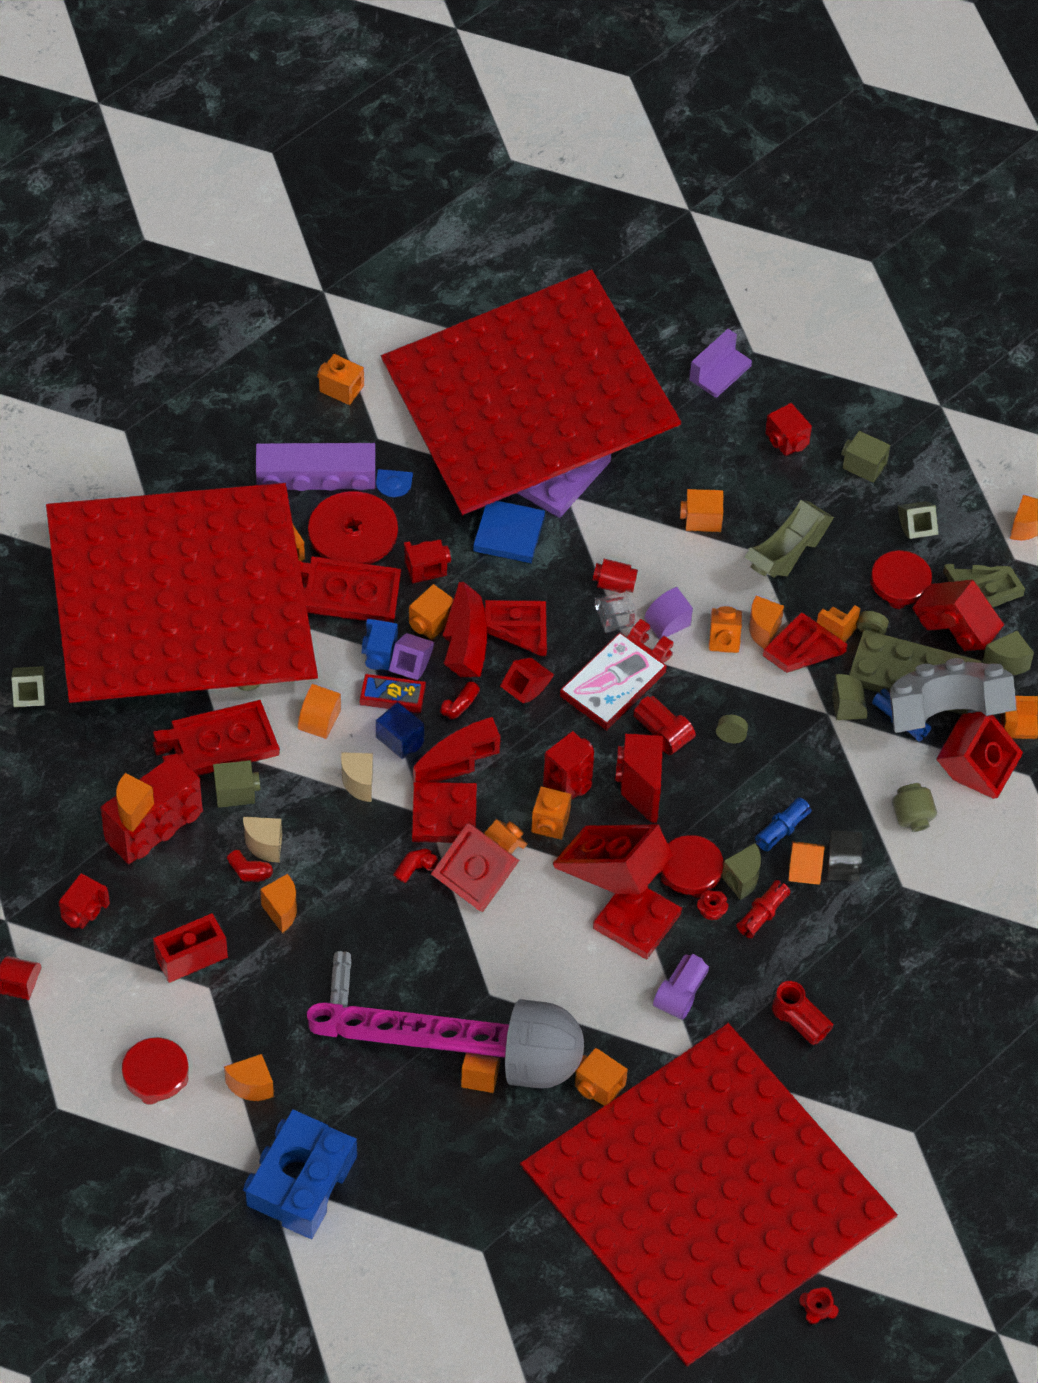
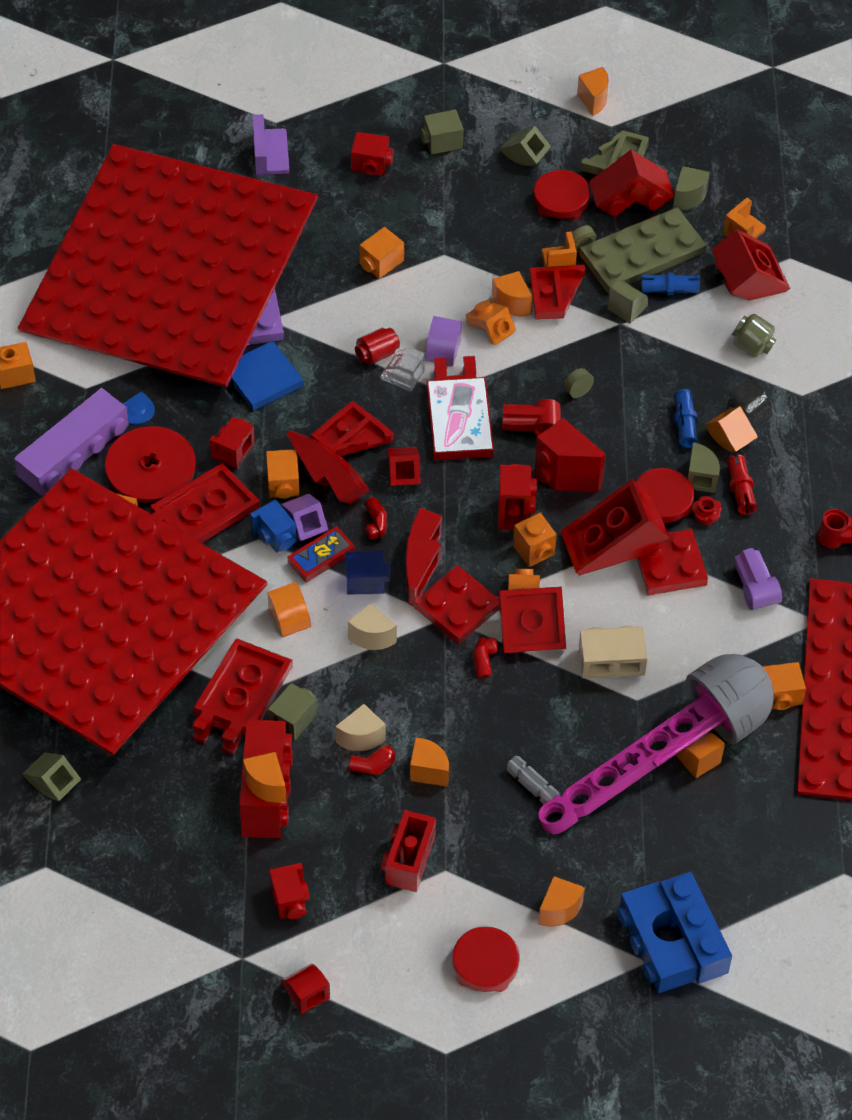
camera: 45 degrees left, 0 degrees up
(504, 941) = (612, 652): none -> tan brick
(785, 546) = (467, 224): olive arch -> none
(950, 687) = (698, 229): light grey brick -> none

